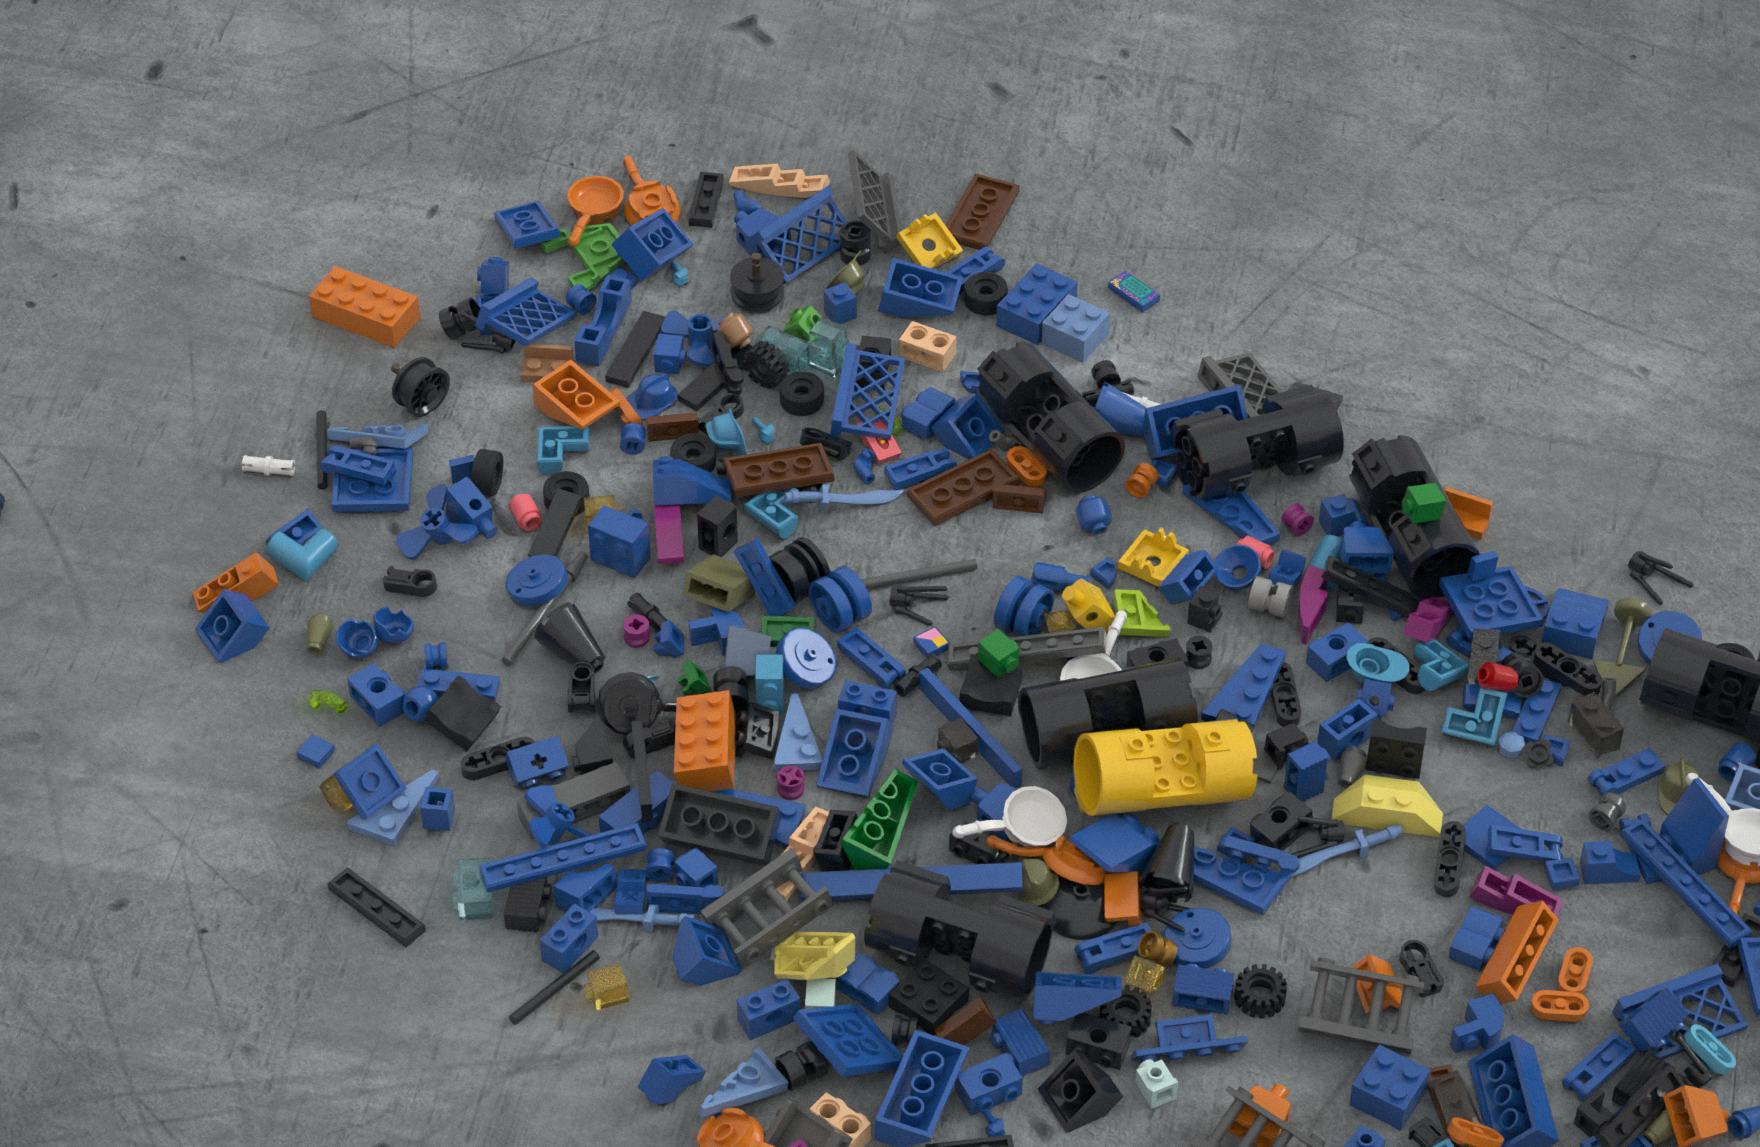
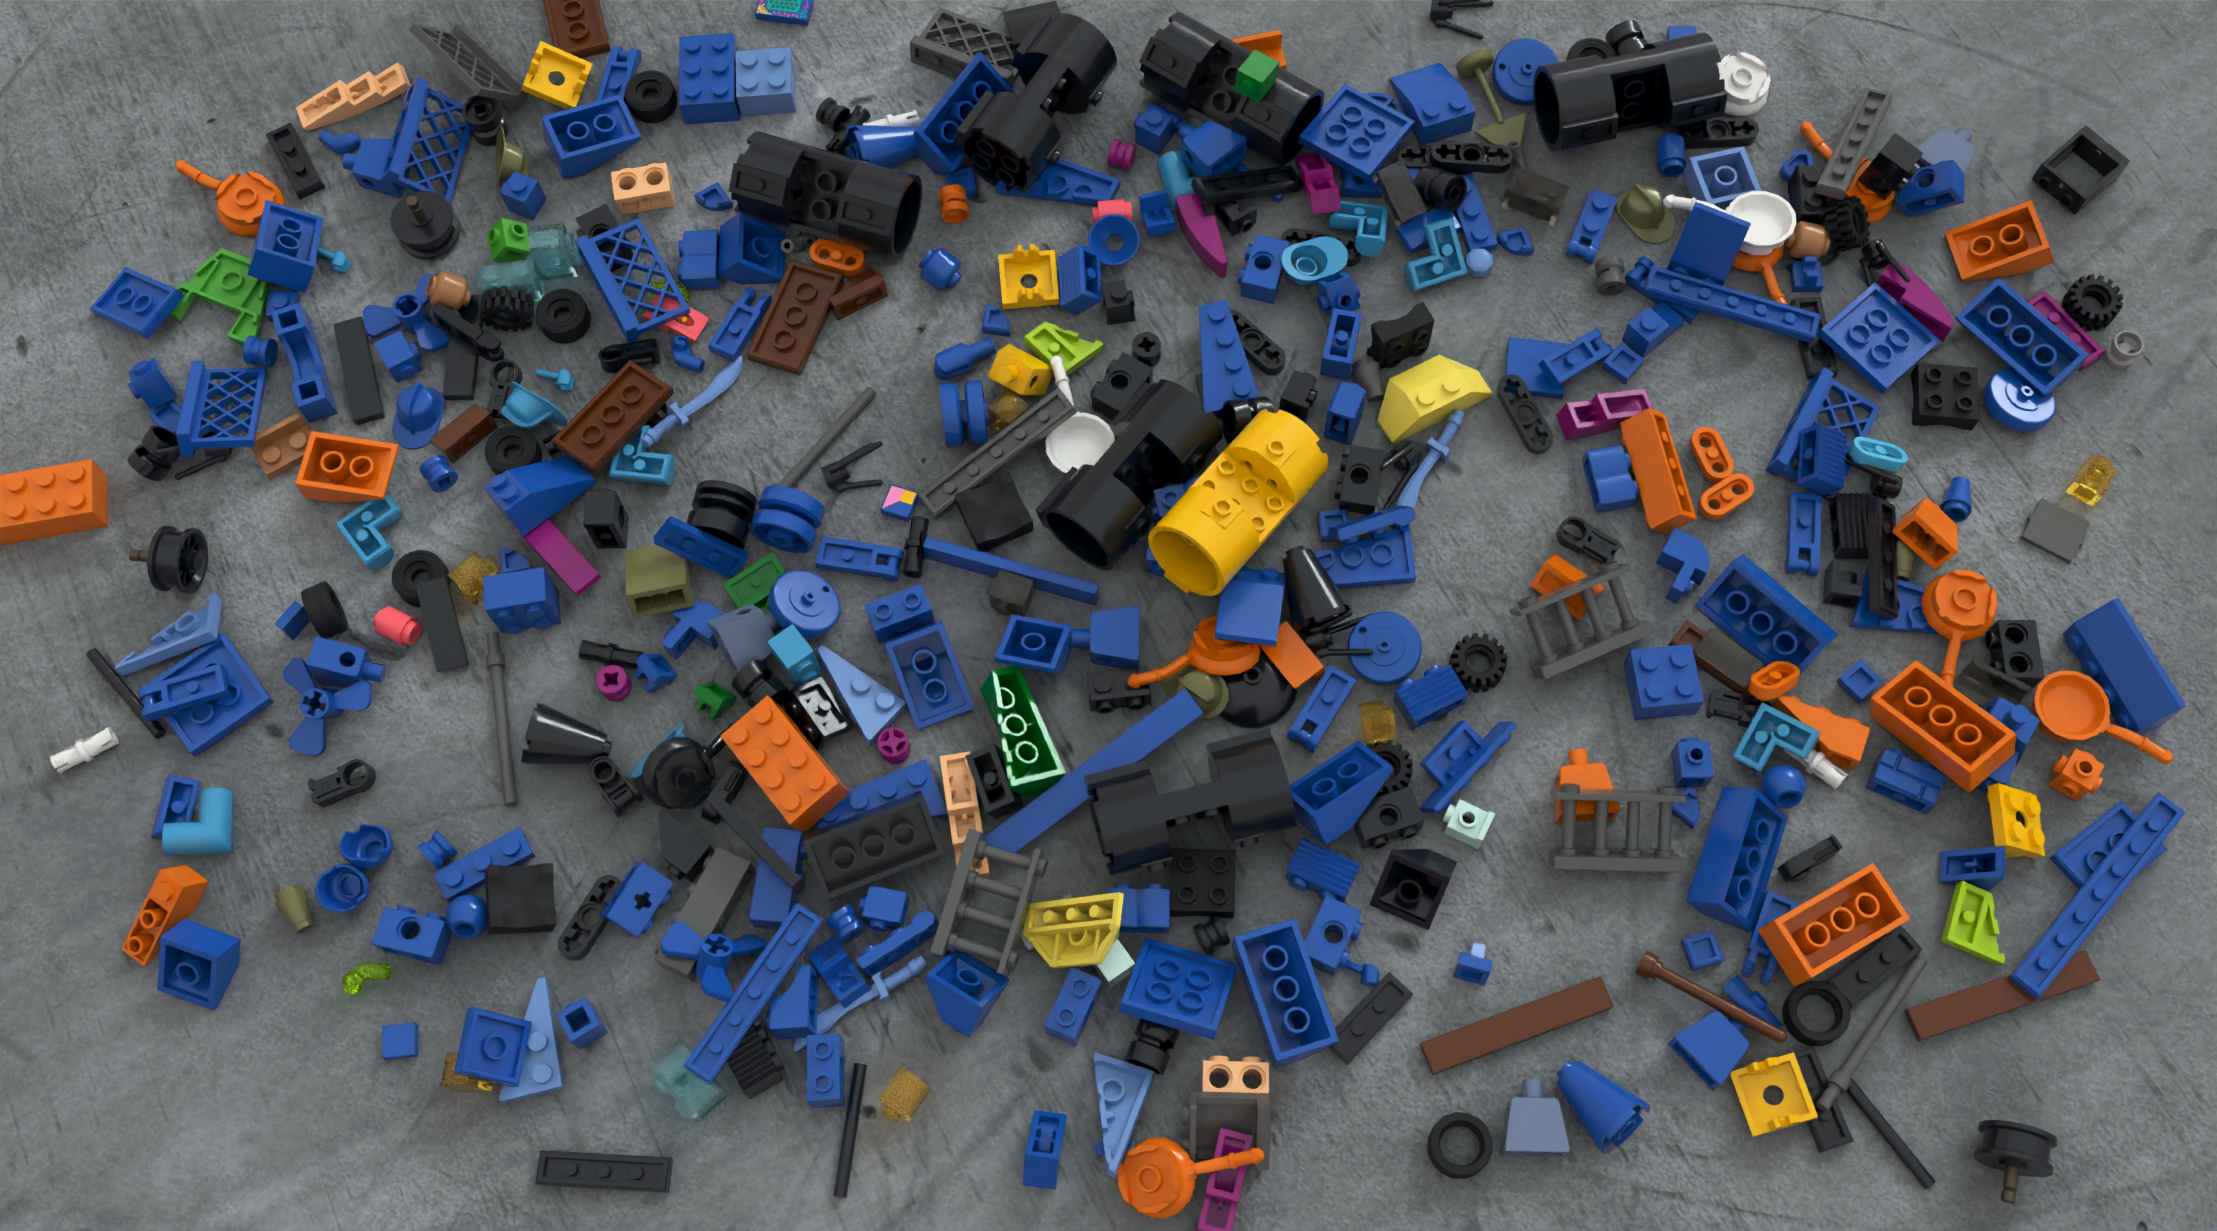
camera: 35 degrees left, 20 degrees up
(367, 443) = (171, 658): dark grey arm -> none
(537, 580) = (471, 695): blue wheel -> none
(593, 202) = (186, 232): orange piece -> none
(629, 414) = (415, 450): orange plate -> none
(967, 1023) = (1262, 892): reddish brown panel -> none
(998, 653) = (986, 480): green brick -> none
(1029, 817) = (1154, 635): white piece -> none
(1156, 948) = (1365, 687): pearl gold wheel -> none
(1269, 596) = (1155, 250): light grey wheel -> none
(1482, 566) = (1329, 101): blue tile -> none
(1497, 677) = (1434, 208): red brick -> none
(1542, 746) = (1516, 252): black plate -> none

